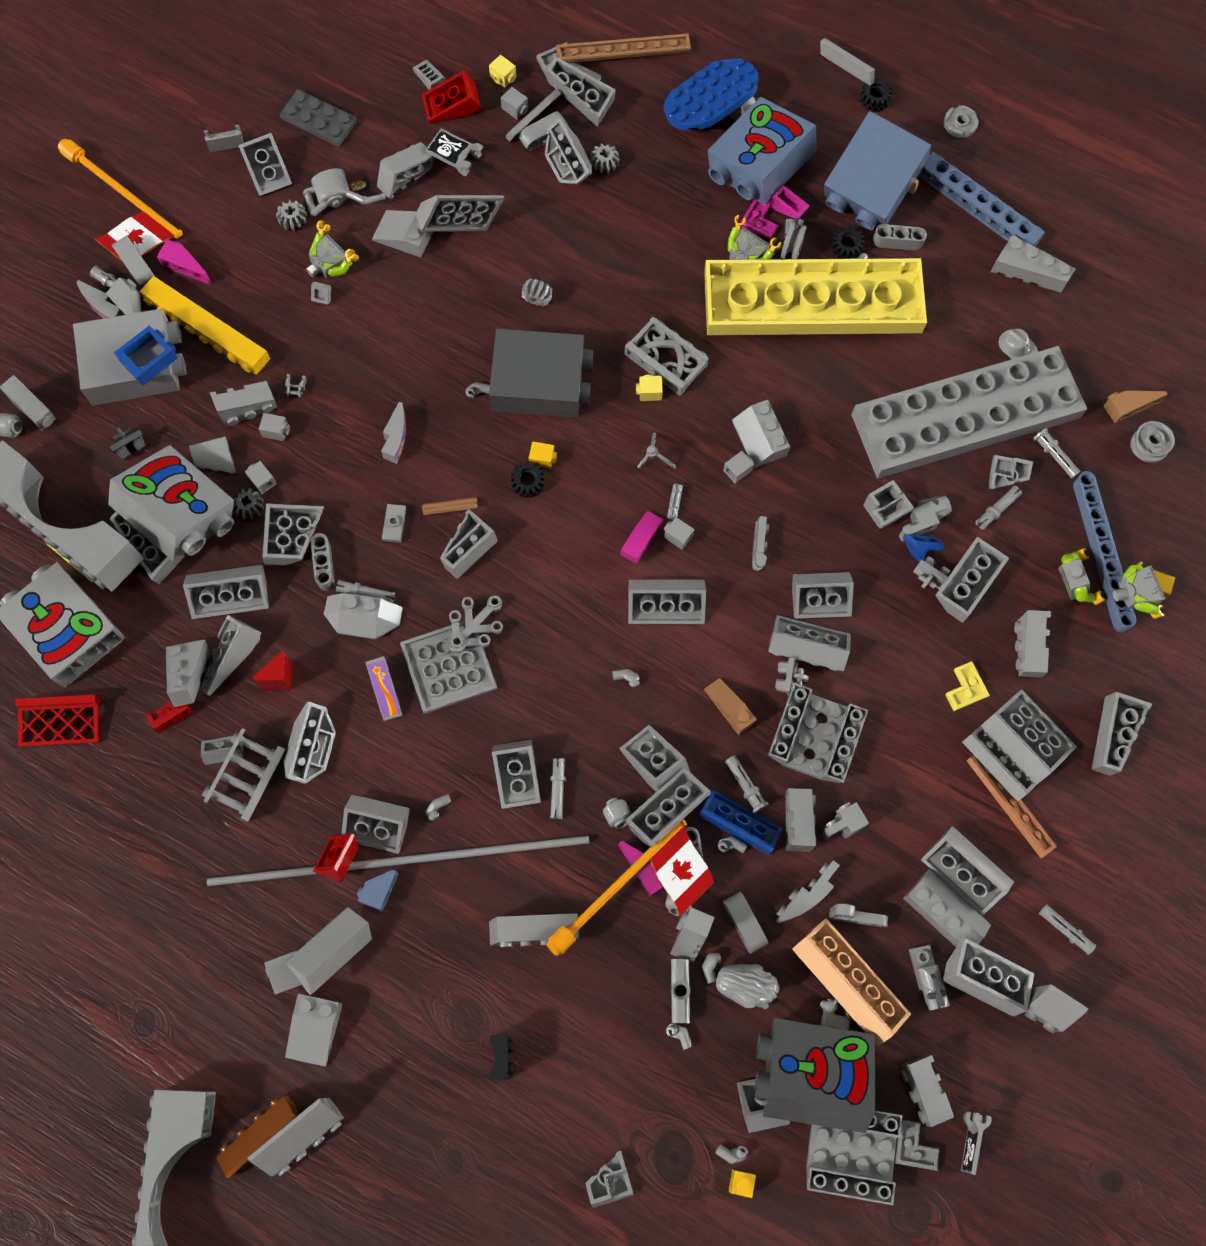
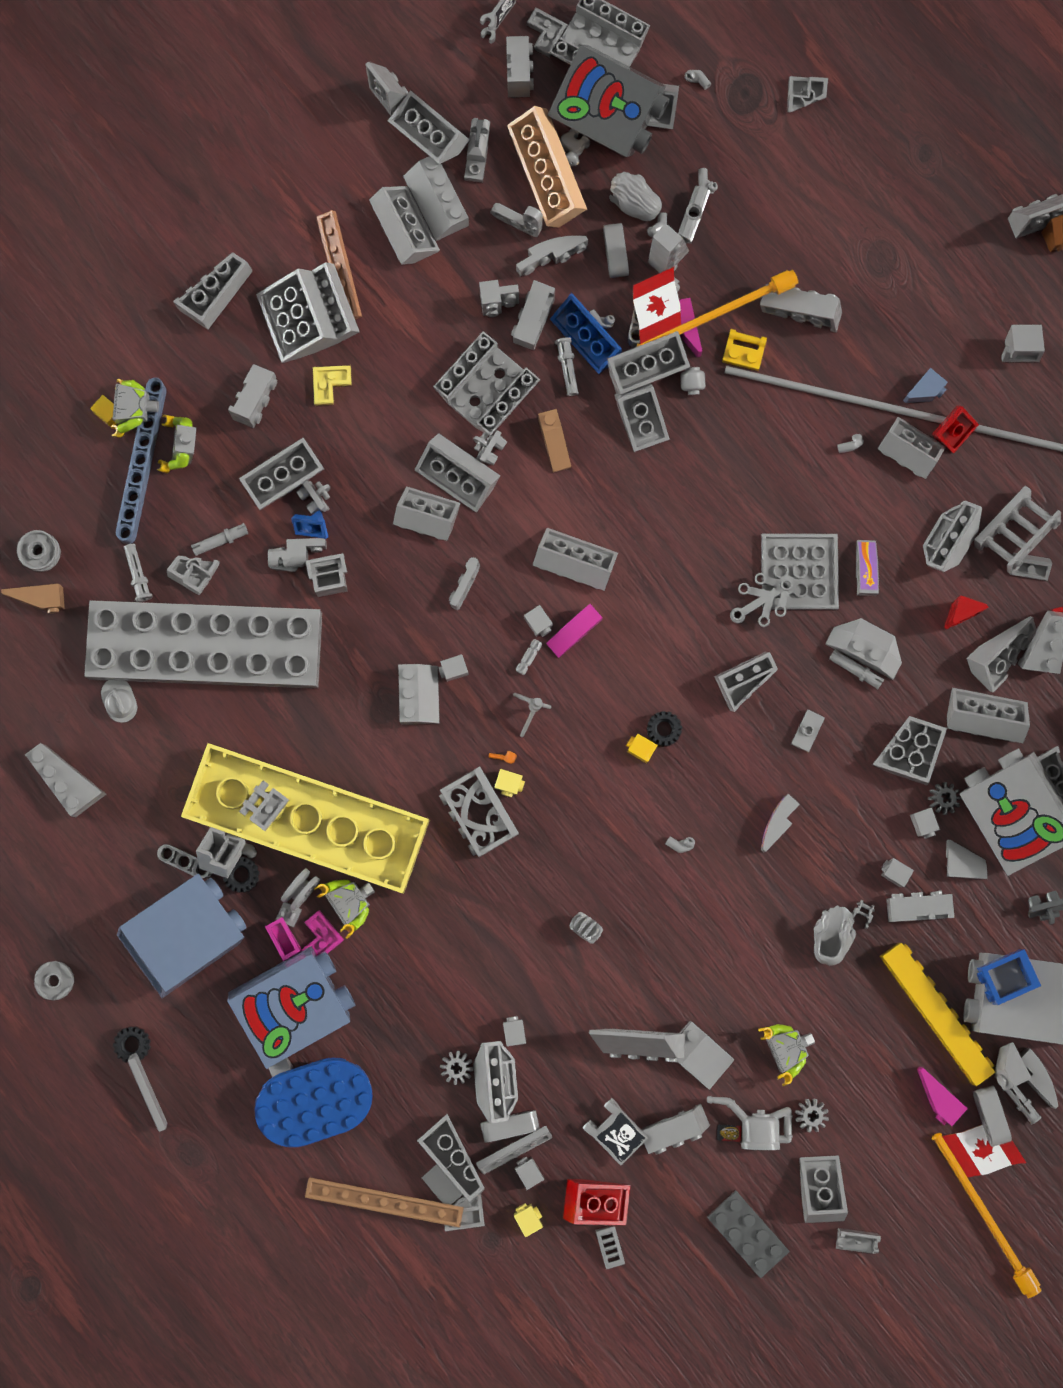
camera: 160 degrees left, 10 degrees up
(312, 1029) = (1014, 295): light grey slope -> none
(315, 355) = (833, 935): none -> light grey hair
(321, 293) = (807, 1009): light grey tile -> none
(326, 569) = (883, 720): light grey beam -> none
(329, 950) = (984, 347): light grey slope -> none
(448, 506) = (748, 729): medium nougat axle -> none
(502, 1067) = (862, 216): black brick -> none
(516, 774) = (771, 448): light grey slope -> none
(539, 373) = (615, 832): dark grey brick -> none
(557, 788) = (734, 429): light grey pin -> none
(567, 198) = (514, 1031): none -> light grey brick
(573, 860) = (741, 355): none -> yellow plate
(627, 674) = (636, 502): light grey arm -> none
(658, 409) = (509, 757): none -> orange hand
(742, 1183) = (699, 52): yellow brick -> none
(849, 283) = (268, 809): none -> light grey plate
(874, 242) = (219, 852): none -> light grey plate
(978, 201) = (44, 814): sand blue brick -> none
(1067, 929) = (336, 141): light grey pin -> none

